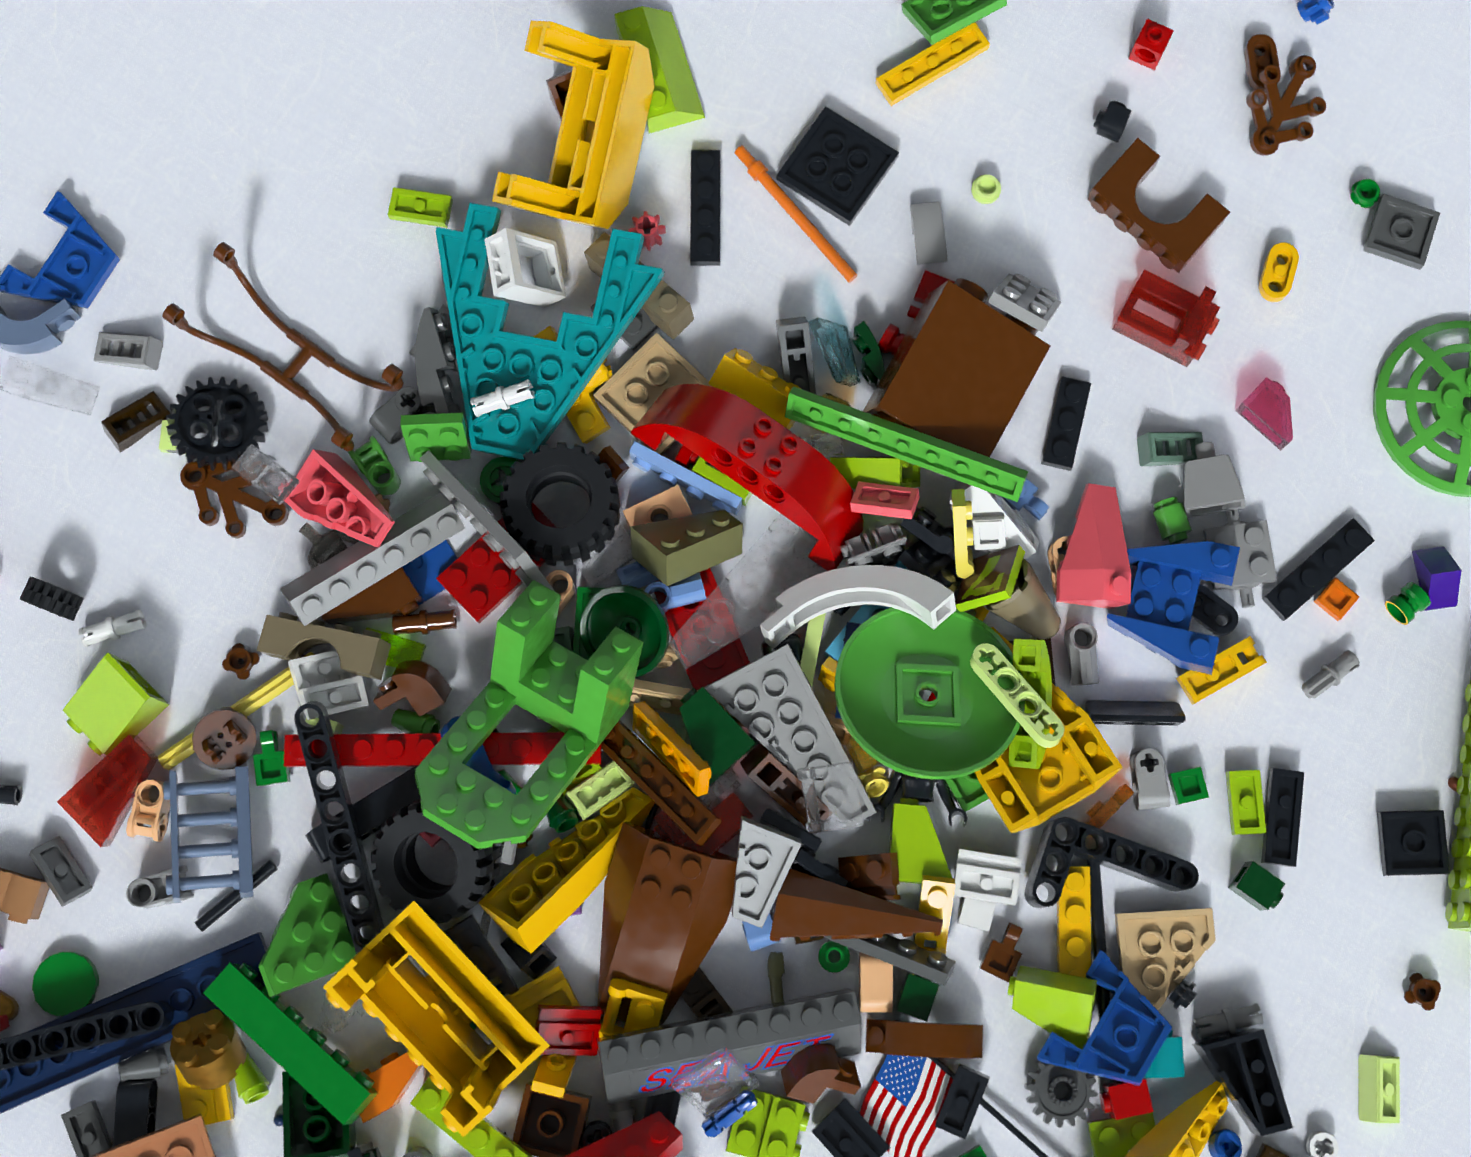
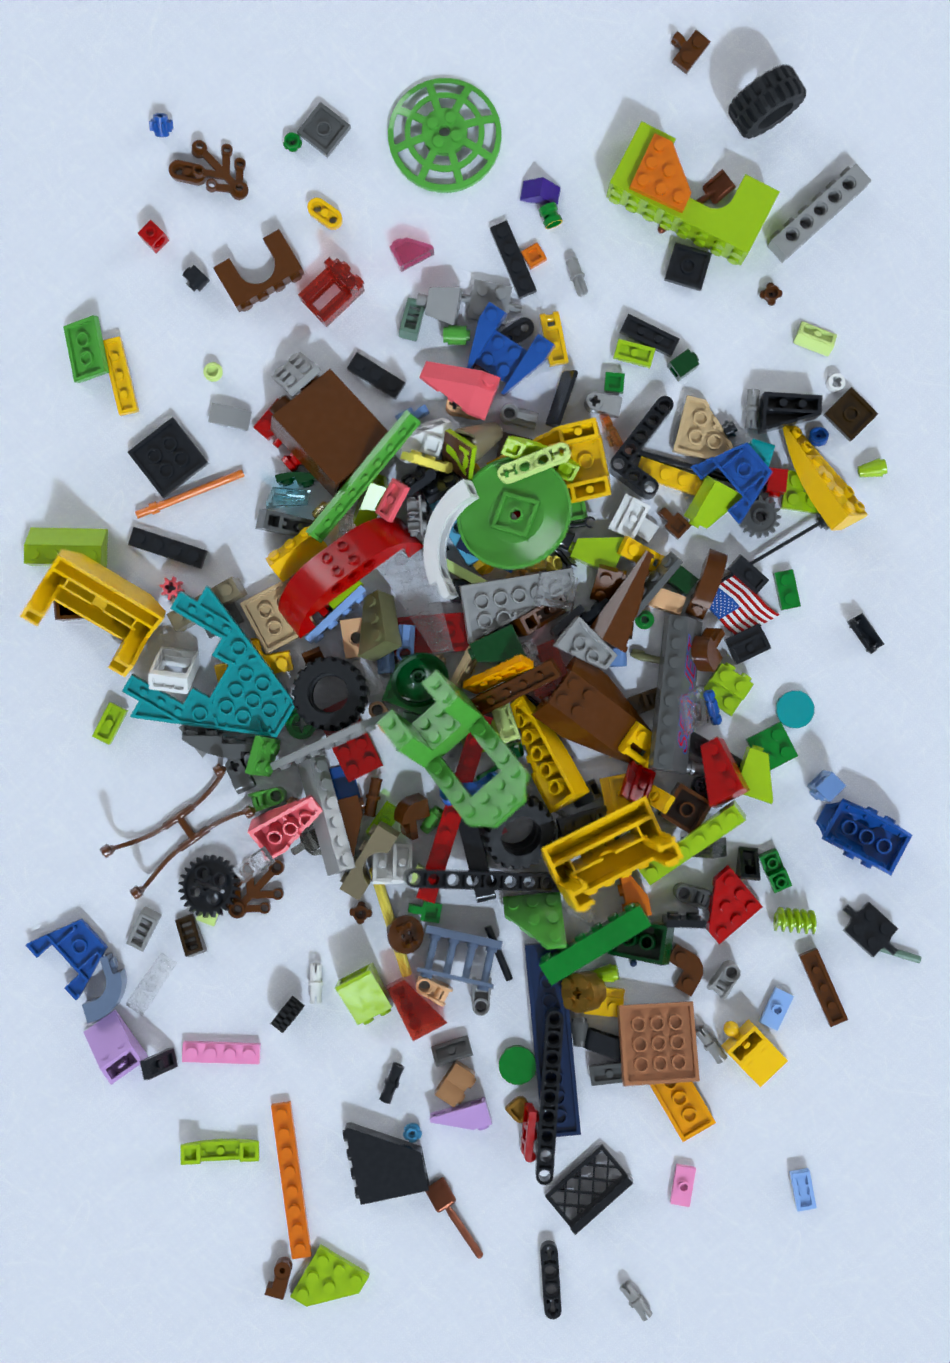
camera: 75 degrees left, 10 degrees up
(502, 398) = (253, 708): white pin -> none

